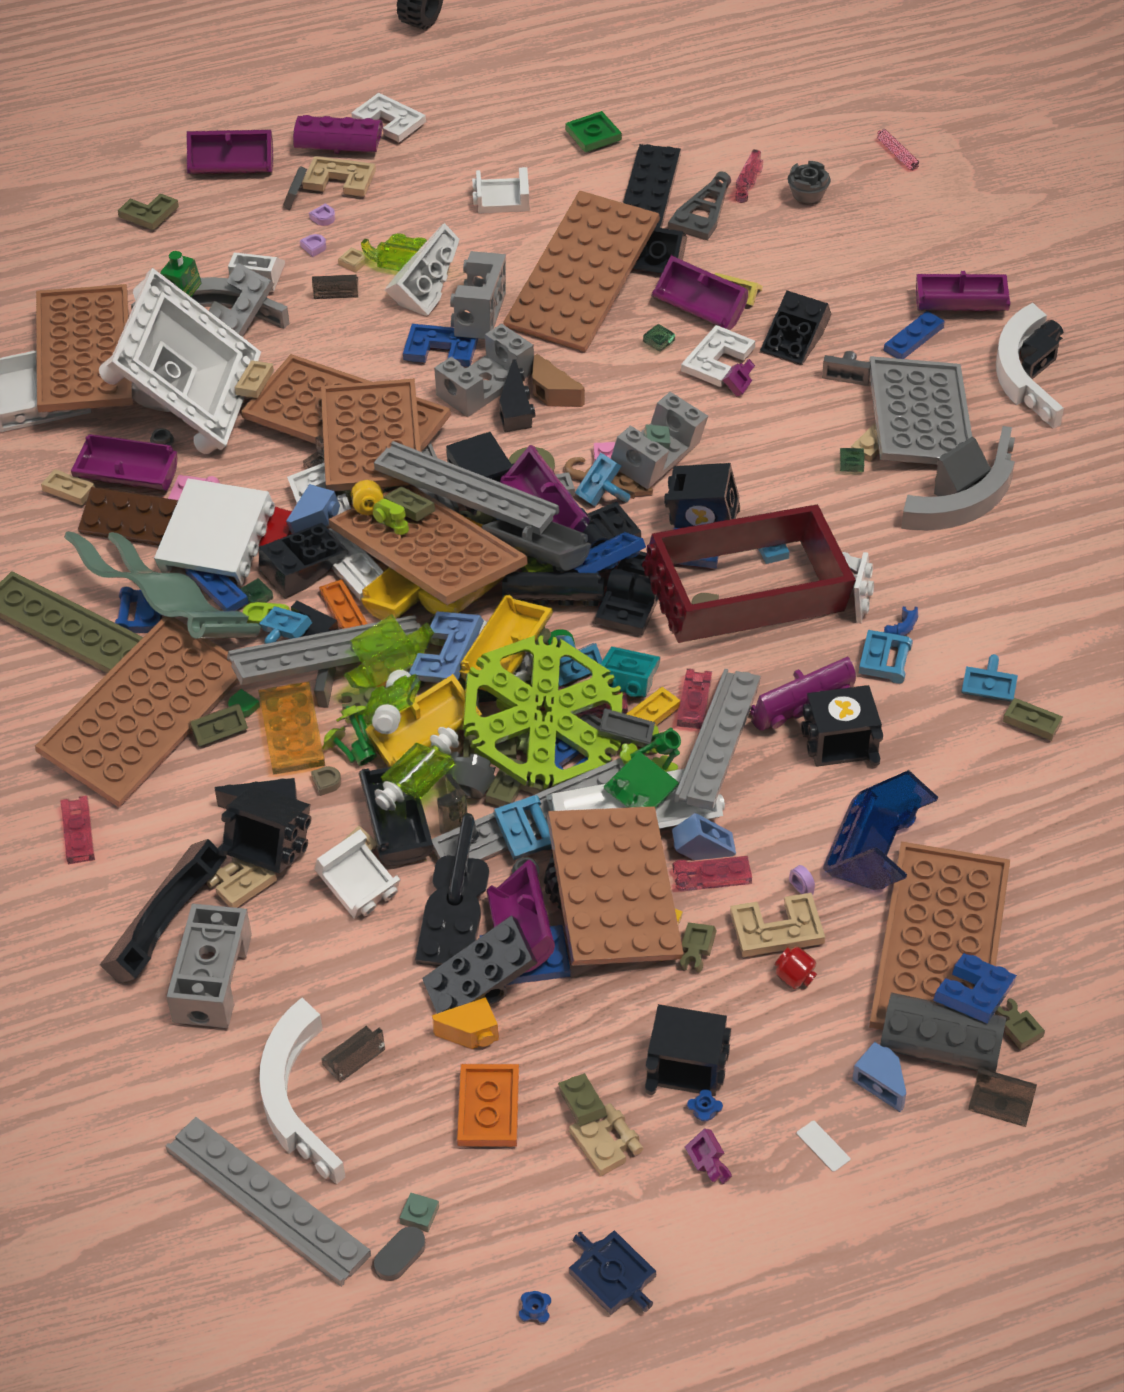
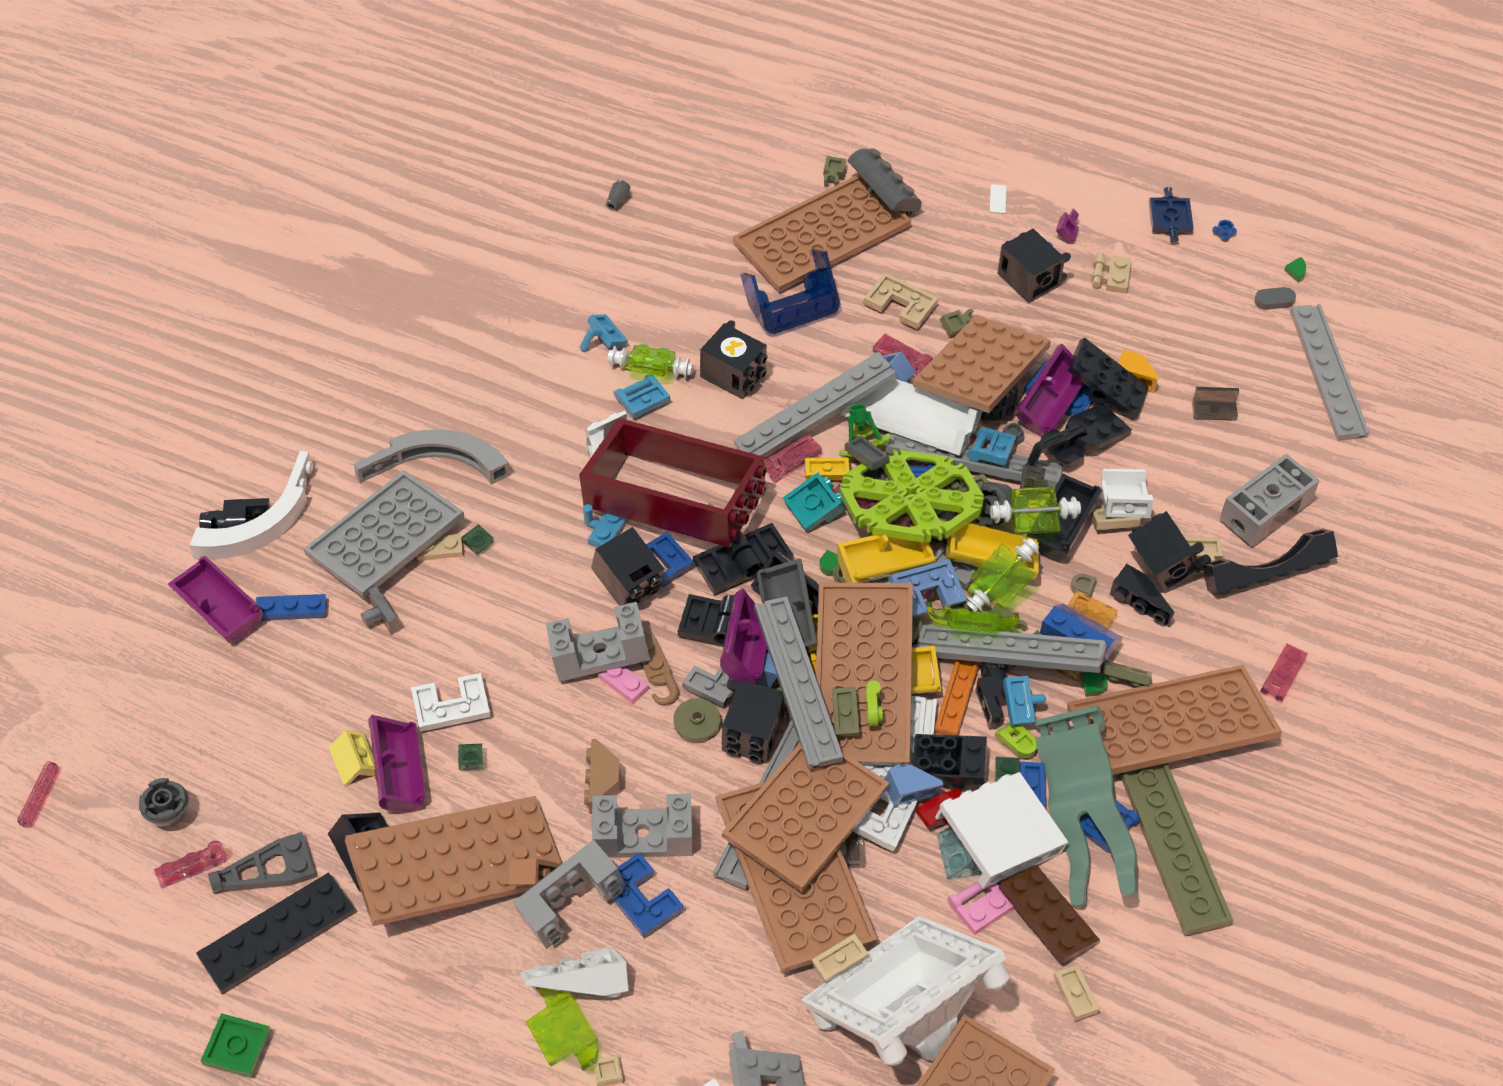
camera: 140 degrees left, 5 degrees up
(126, 462) = (1031, 979): magenta container -> none
(281, 1050) = (1262, 431): white arch -> none
(282, 711) = (1067, 622): none -> blue slope
(335, 286) = (655, 1047): clear smoke panel -> none
(362, 749) = (1043, 581): green plant -> none
(365, 495) = (870, 742): yellow head -> none
(406, 1318) = (1296, 269): none -> green tile
(419, 1212) = (1247, 309): sand green plate -> none
(488, 1105) = (1162, 327): orange plate -> none
(501, 194) = (399, 1036): white panel -> none
(514, 404) = (652, 779): black slope -> none
(516, 287) = (529, 871): none -> nougat slope
(570, 669) = (838, 535): dark azure plate -> none
(582, 1099) = (1108, 292): olive plate -> none
(599, 480) = (670, 652): dark azure plate -> none
(610, 552) = (736, 571): blue plate -> none
(641, 783) = (900, 414): green plate -> none
(658, 434) = (596, 644): sand green plate -> none
(738, 377) = (464, 667): magenta plate -> none
(787, 700) = (729, 400): magenta container -> none
(796, 327) = (364, 676): black slope -> none
(796, 967) = (918, 271): red head -> none
(802, 880) = (859, 311): lavender tile -> none
(881, 1075) = (935, 197): medium blue slope -> none
(909, 619) = (602, 403): blue piece -> none
(917, 684) = (650, 361): none -> clear neon green plate
(960, 468) = (432, 464): dark grey slope -> none
(990, 988) = (856, 167): blue plate -> none
(1002, 1097) = (886, 147): clear smoke panel -> none
(1032, 719) = (610, 297): olive plate -> none

